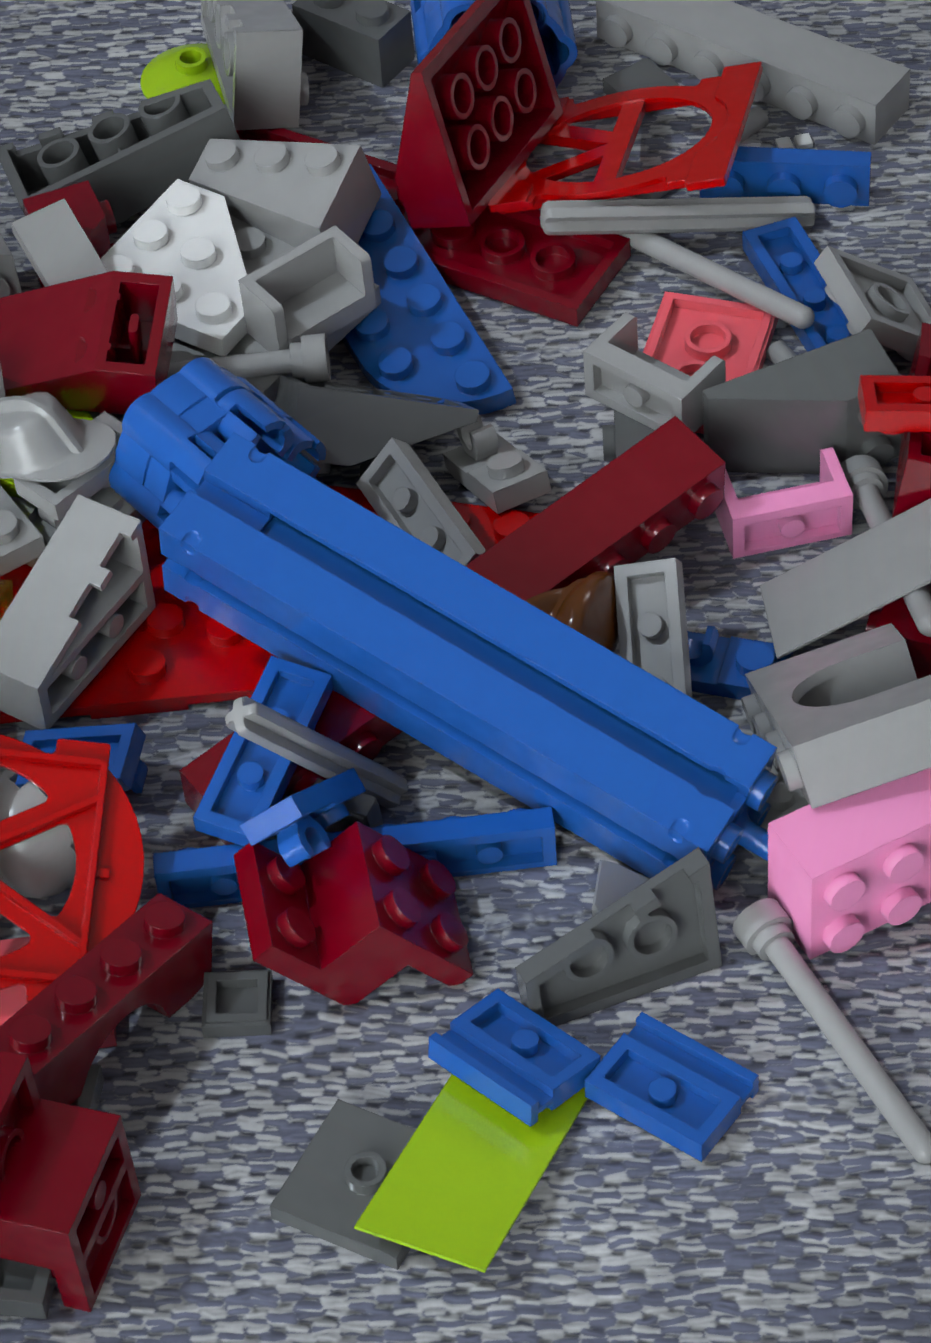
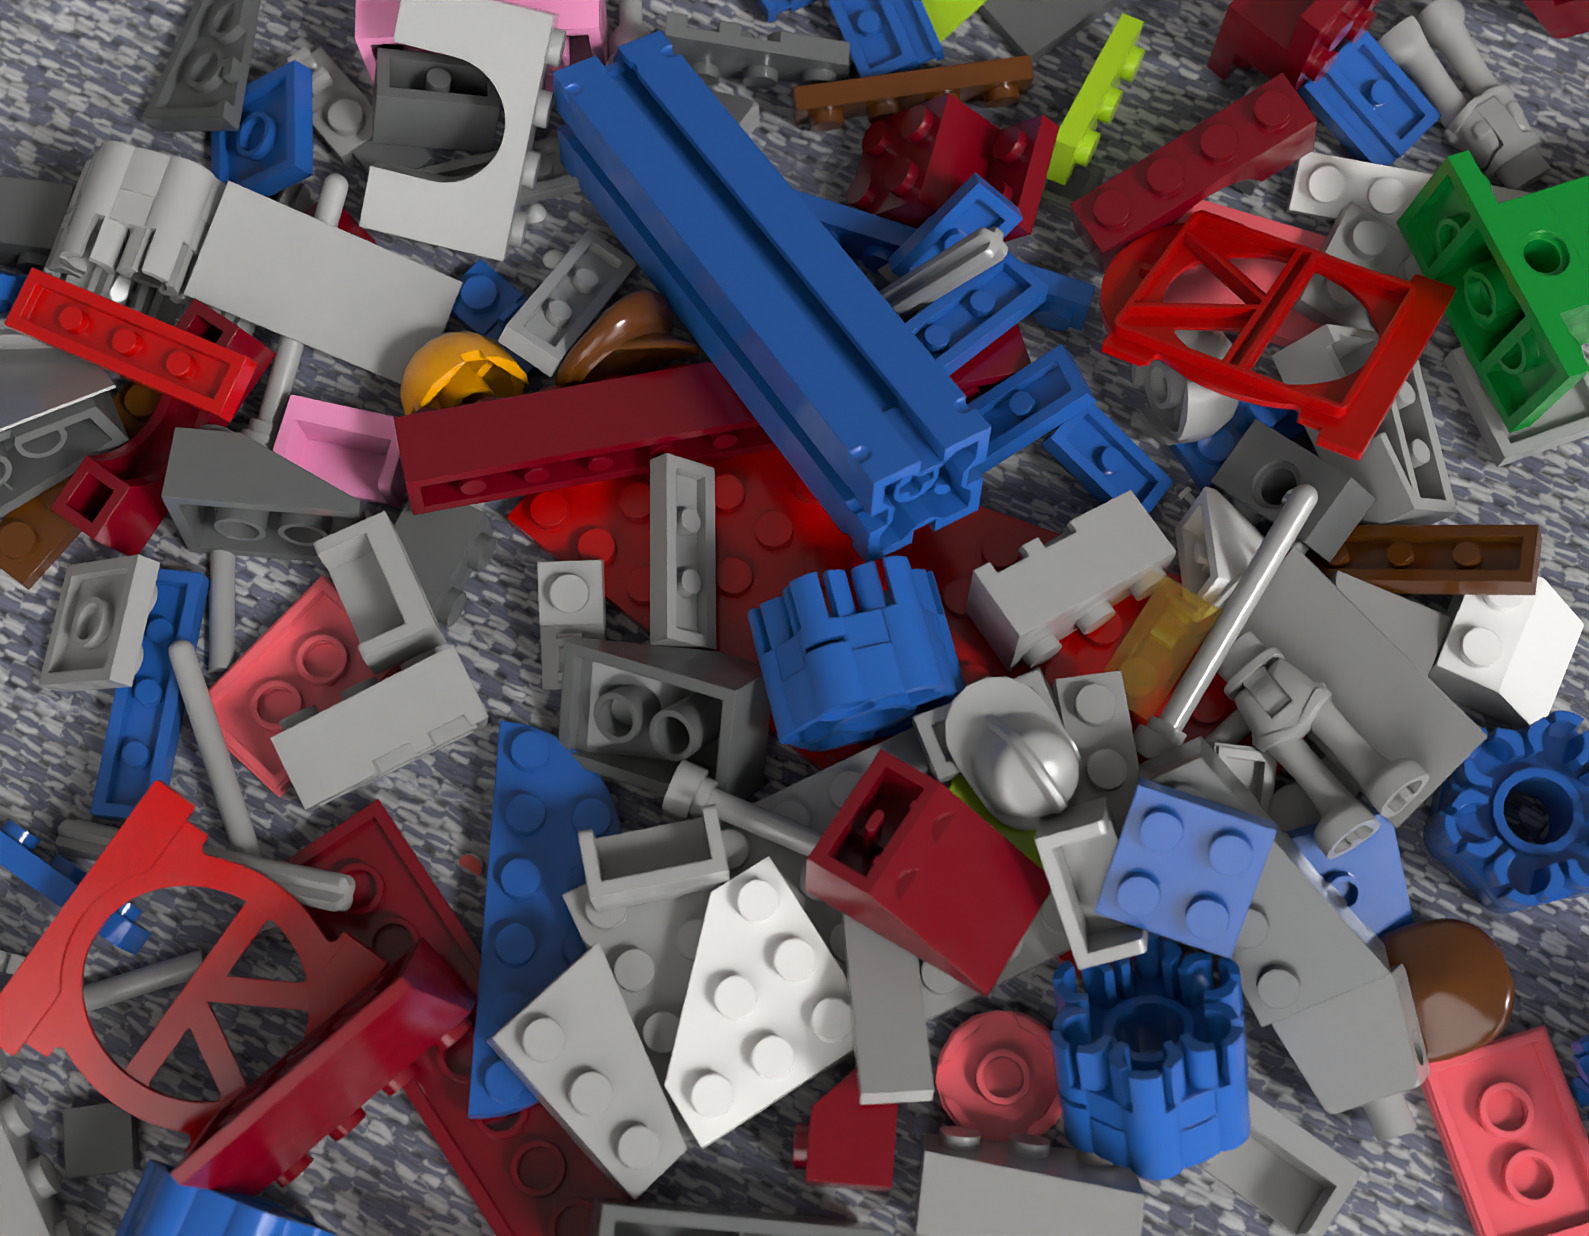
camera: 155 degrees left, 25 degrees up
(170, 739) = (1032, 404): none -> blue plate
(237, 1062) = (1097, 99): none -> lime plate
(400, 1024) = (880, 96): none -> reddish brown plate
(481, 325) = (472, 863): none -> coral piece
(552, 335) = (379, 727): none -> light grey wedge
(722, 569) = (459, 372): none -> light orange cylinder

